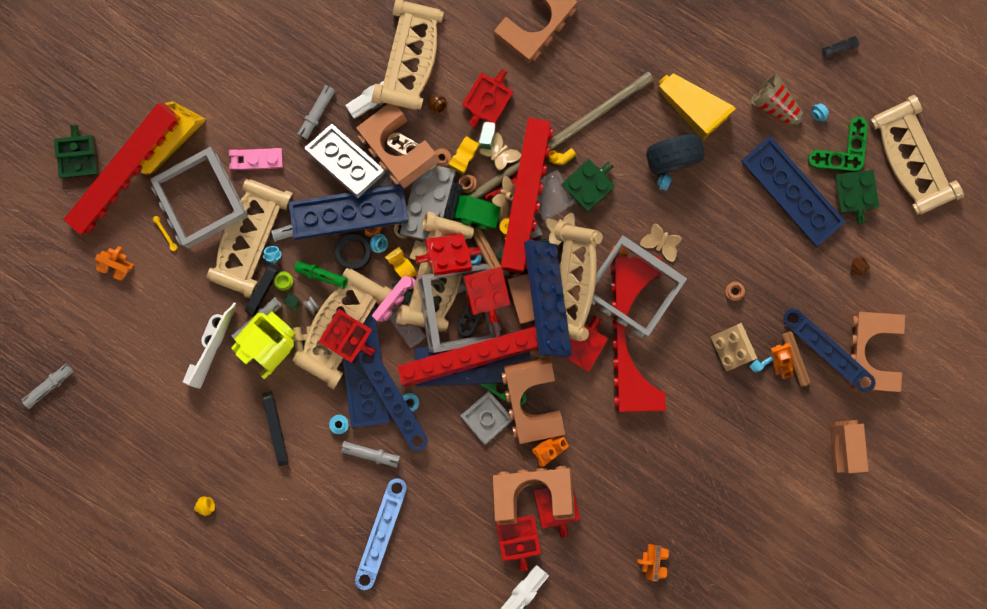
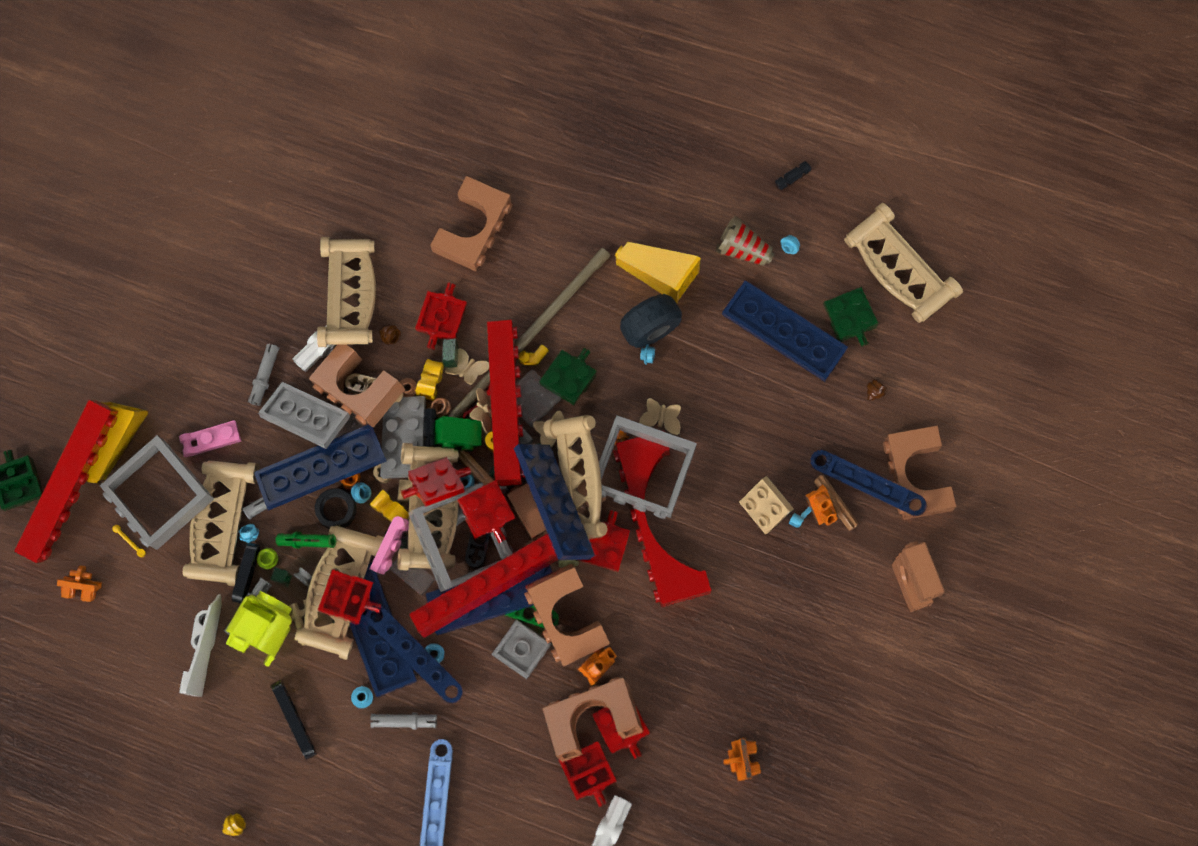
camera: 10 degrees left, 10 degrees down
(54, 380) = (30, 739): light grey pin -> none
(741, 291) = (752, 442): nougat plate -> none
(851, 153) = (834, 277): green beam -> none

